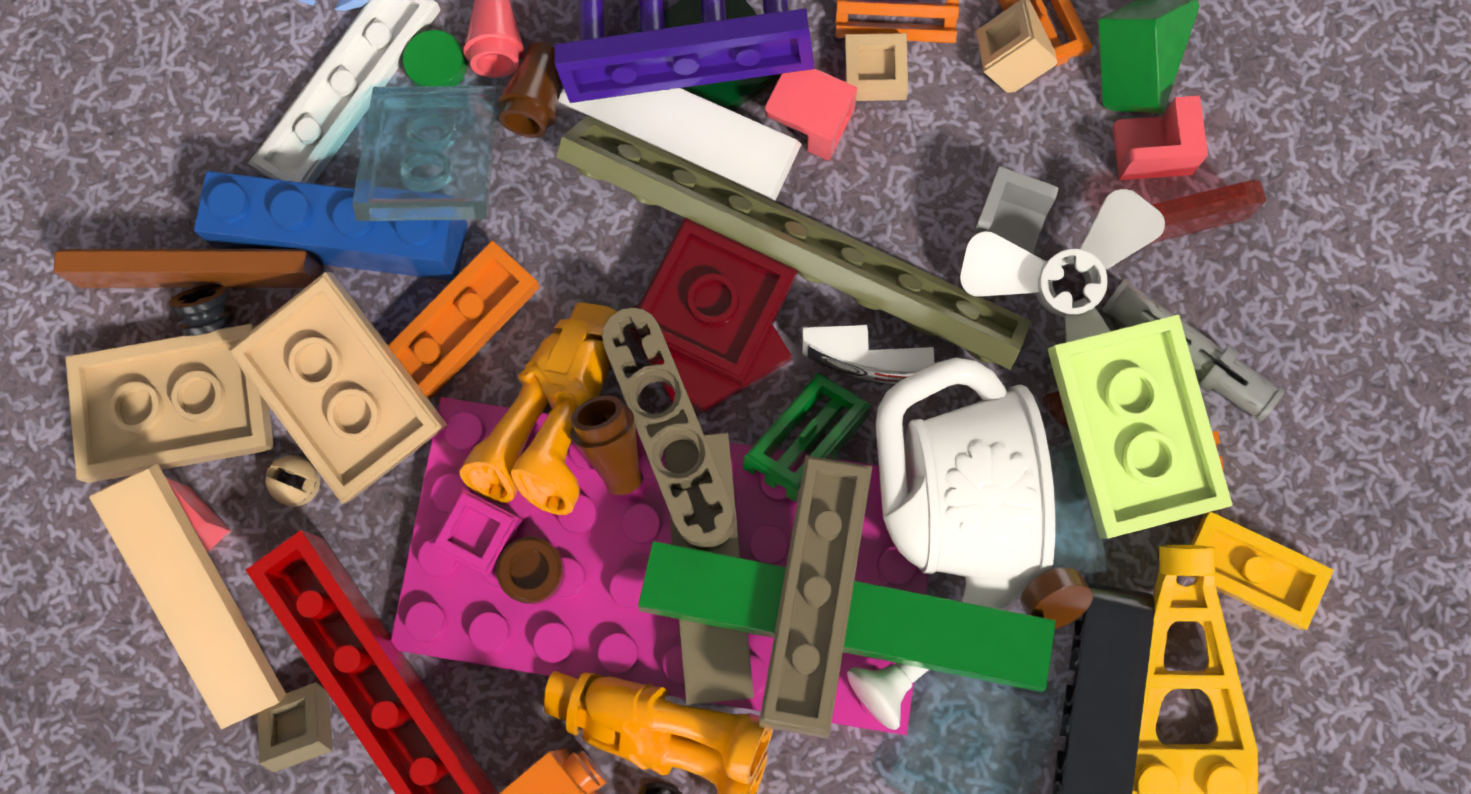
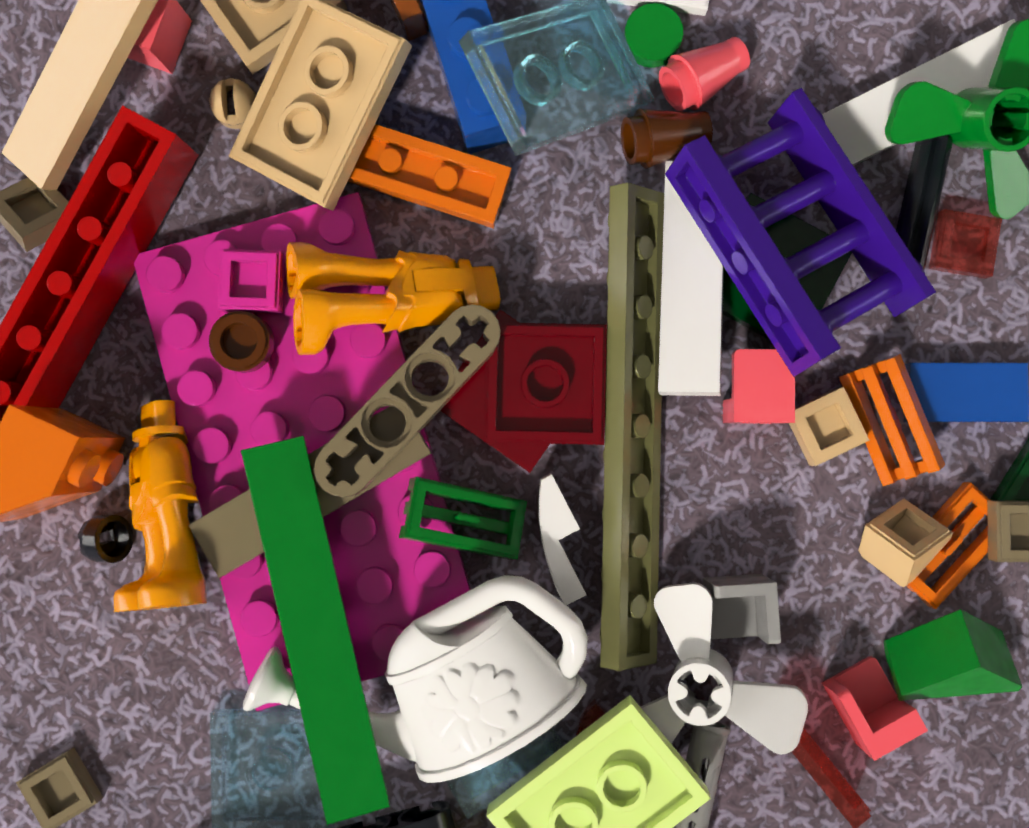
camera: 60 degrees right, 10 degrees up
(607, 439) = (370, 356): reddish brown cone -> none
(816, 598) = (313, 598): dark tan tile -> none
(1057, 596) = (415, 793): reddish brown tile -> none

